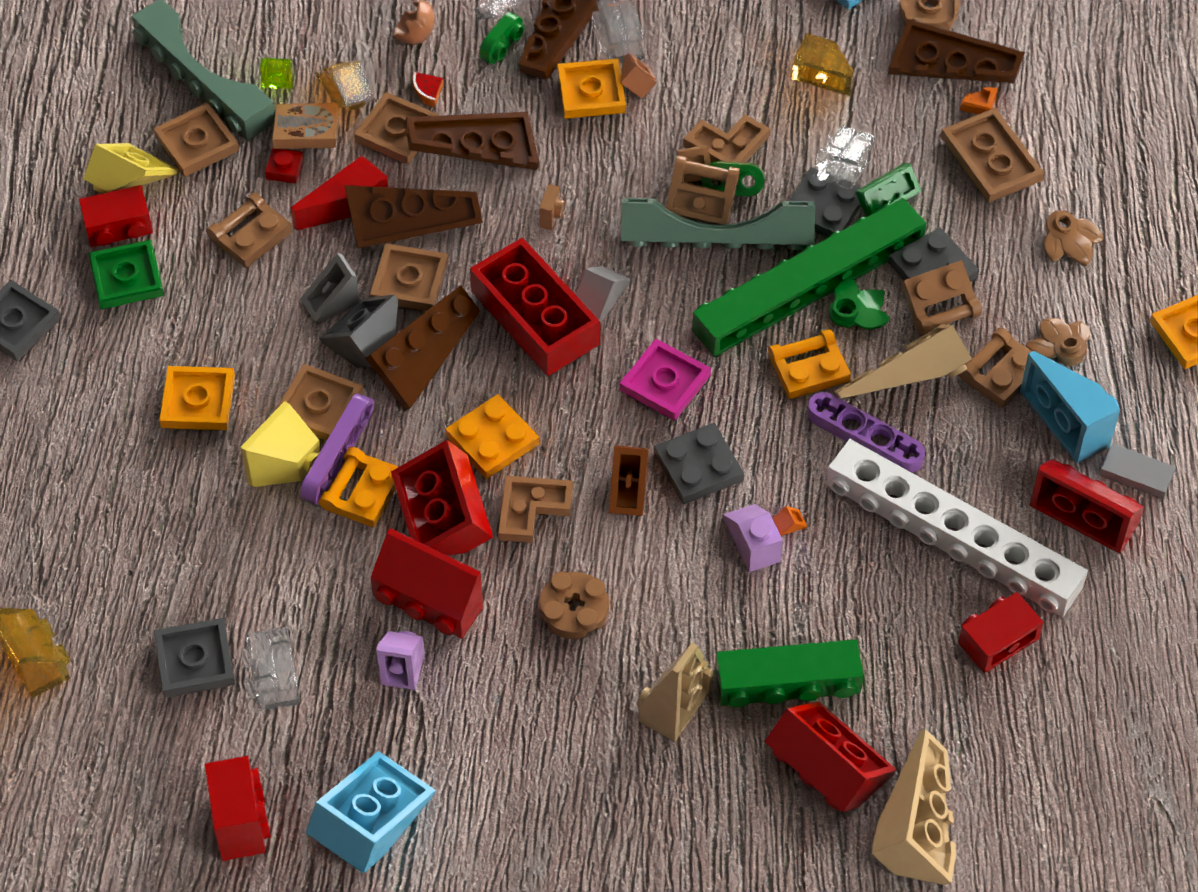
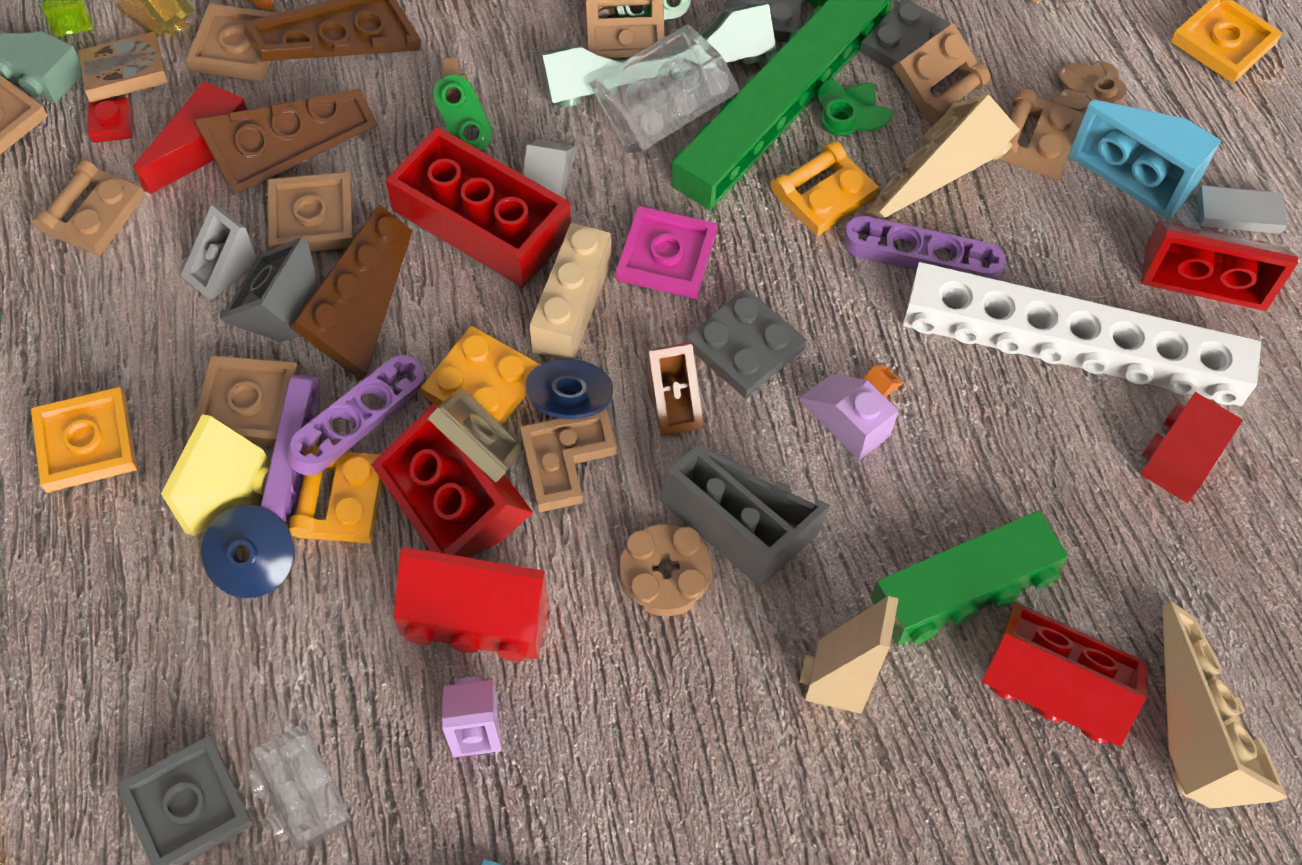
camera: 20 degrees left, 5 degrees up
(301, 511) = (269, 547): none -> dark blue dish
(390, 429) = (360, 416): none -> medium lavender beam
(471, 469) = (477, 433): none -> dark tan tile
(549, 231) = (464, 112): none -> green plate
(551, 458) = (569, 389): none -> dark blue dish
(580, 389) = (571, 292): none -> tan brick
(640, 581) = (739, 514): none -> dark grey wedge
(708, 252) = (663, 88): none -> clear slope

